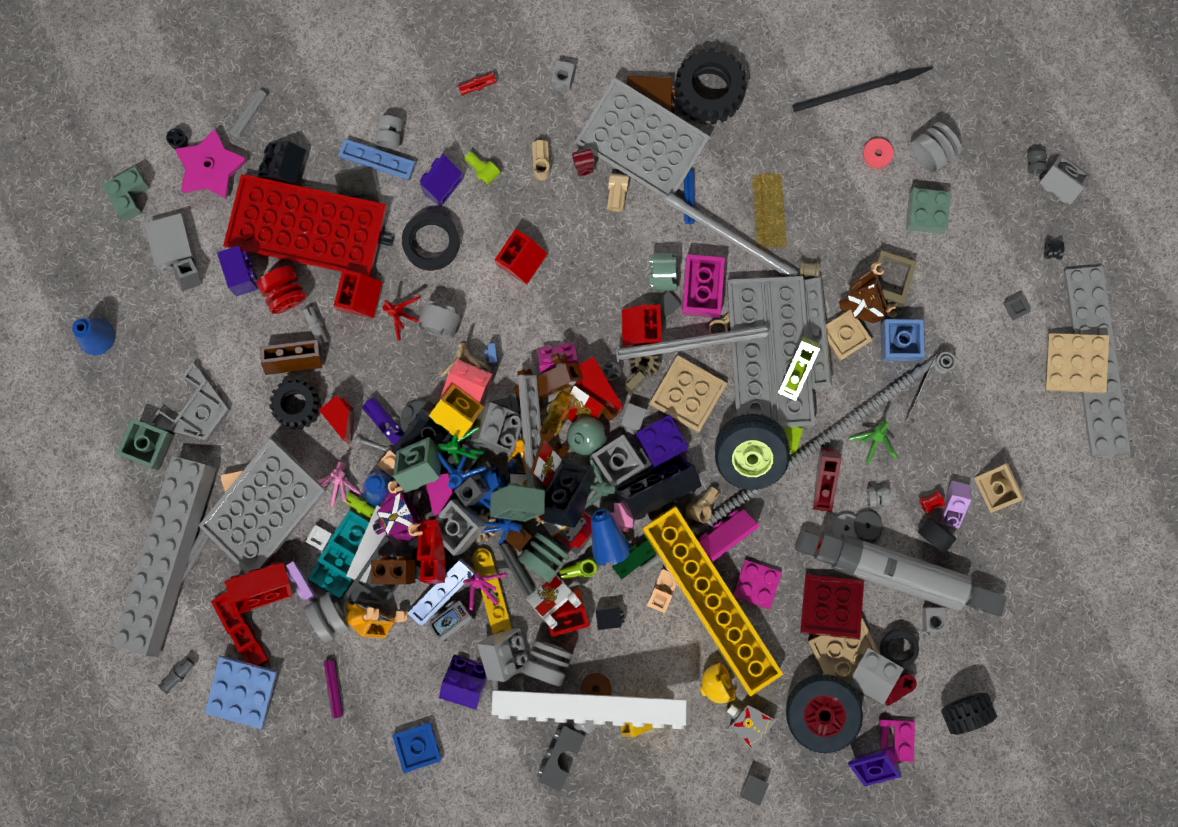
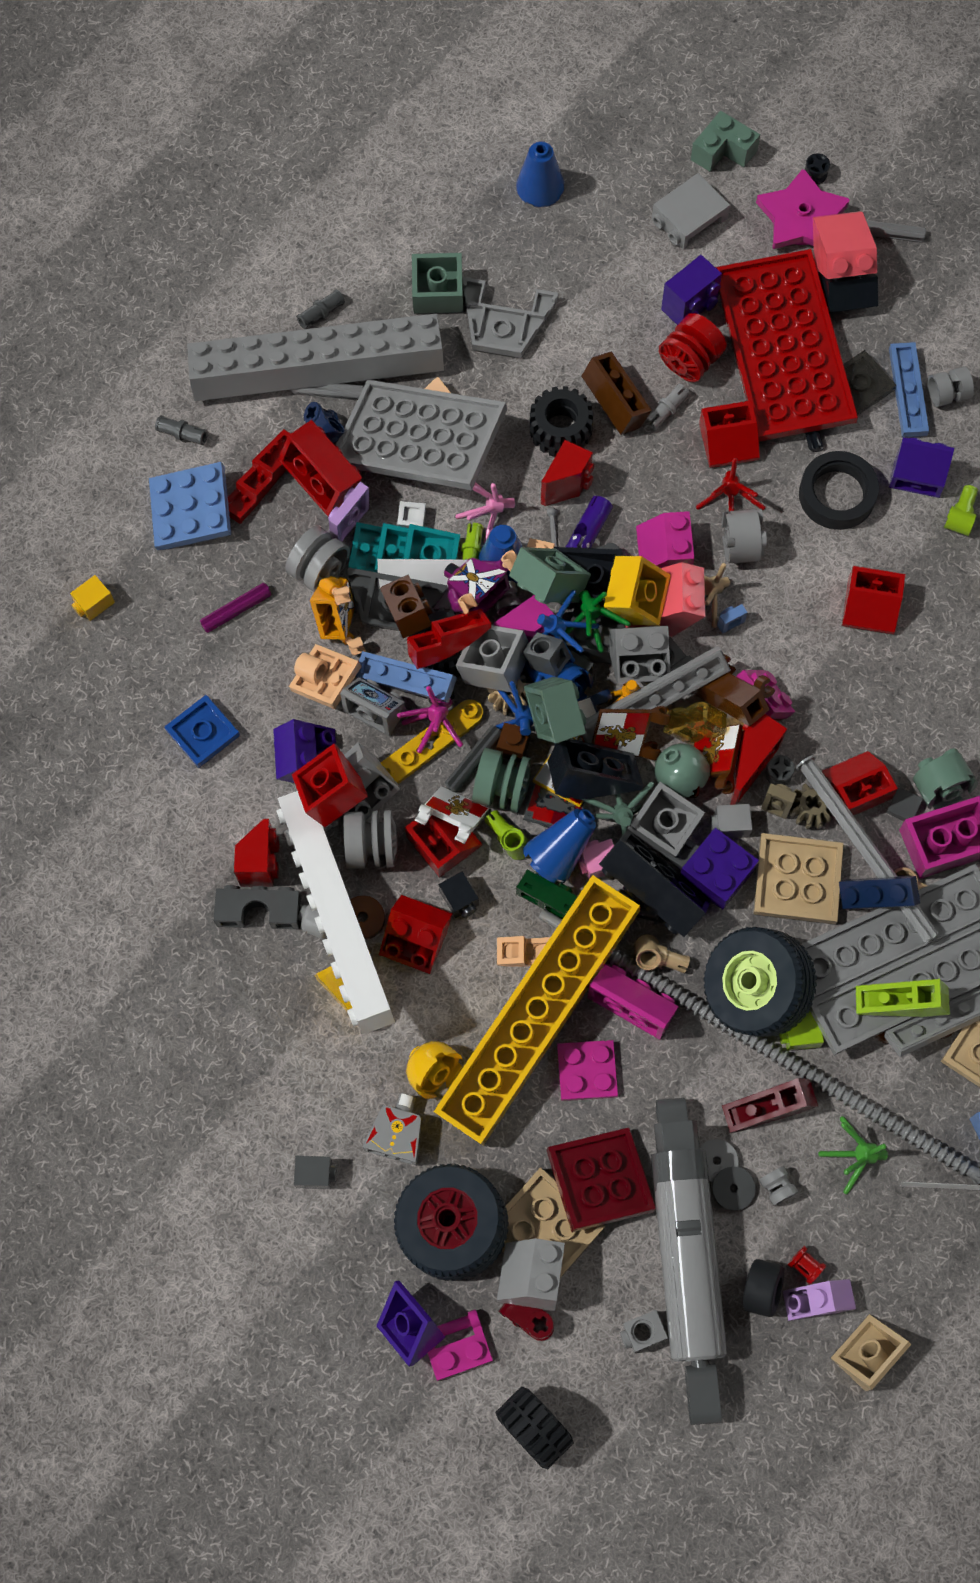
camera: 70 degrees right, 10 degrees down
(124, 536) = (320, 309): none -> dark grey pin
(186, 274) = (659, 242): dark grey brick -> none
(220, 571) = (326, 420): none -> dark blue piece
(254, 152) = (843, 245): none -> coral slope
(282, 790) = (91, 598): none -> yellow brick
(414, 647) = (323, 675): none -> light nougat plate
(418, 374) = (666, 539): none -> dark pink slope
(504, 677) = (328, 786): none -> red slope
(528, 746) = (255, 856): none -> red slope
(622, 658) = (415, 933): none -> red slope
(723, 349) = (879, 892): none -> dark blue plate
(913, 645) = (606, 1298): black tyre -> none

